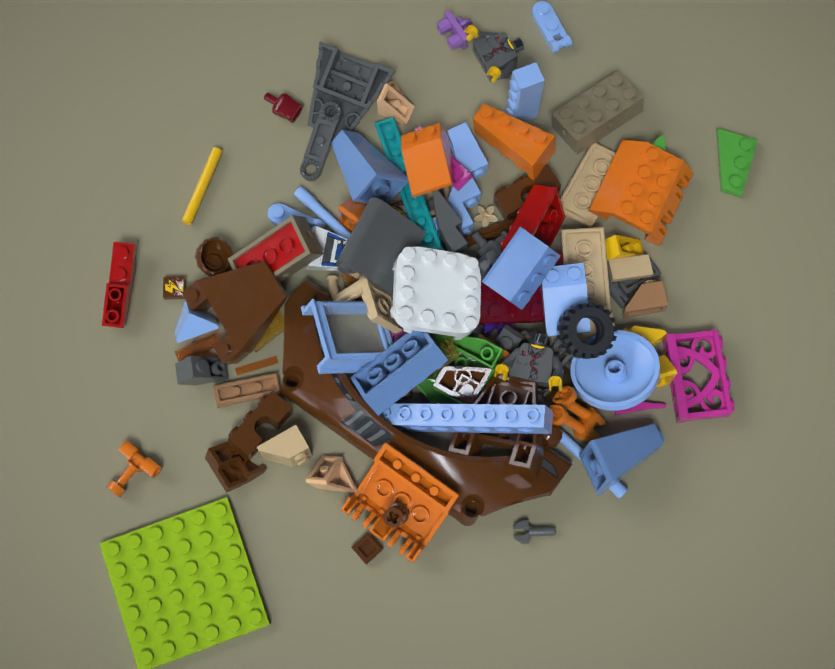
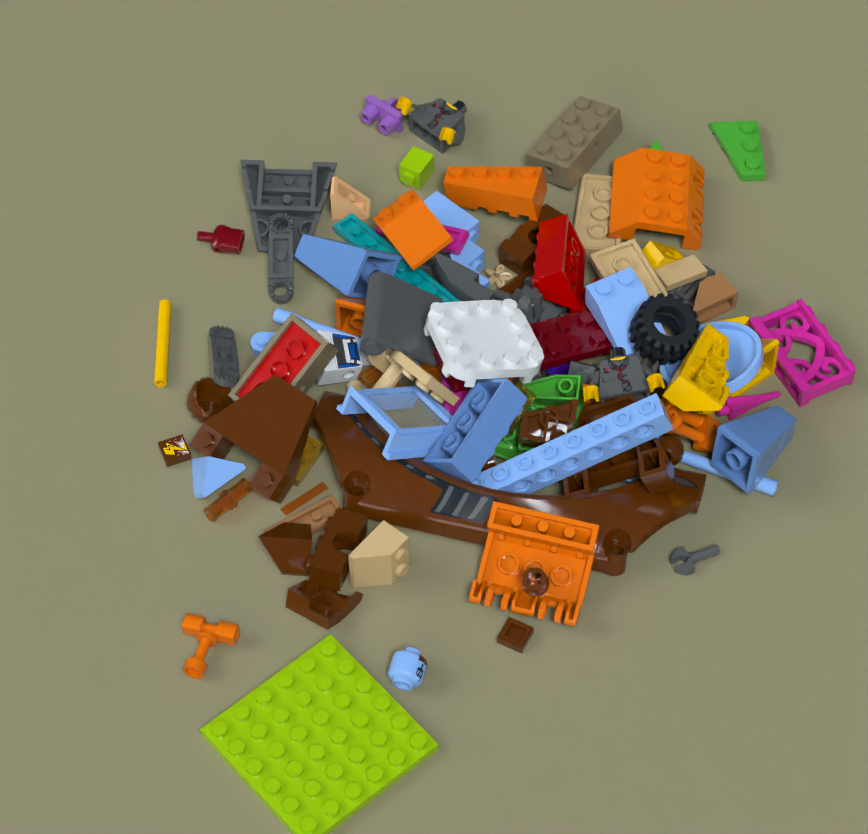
camera: 20 degrees left, 20 degrees down
(120, 285) = (110, 462): red slope -> none
(200, 370) = (243, 518): dark grey slope -> none
(224, 409) = (289, 547): none -> reddish brown slope
(239, 220) = (223, 356): none -> dark grey plate
(271, 551) = (407, 669): none -> light blue head
(332, 475) = (443, 574): light nougat slope -> none
(460, 91) = (416, 167): none -> lime brick
(521, 268) = (567, 288): medium blue slope -> none
(525, 92) = (492, 132): light blue wedge -> none
(550, 26) = (485, 84): light blue plate -> none
(593, 393) = (702, 374): none -> yellow wedge

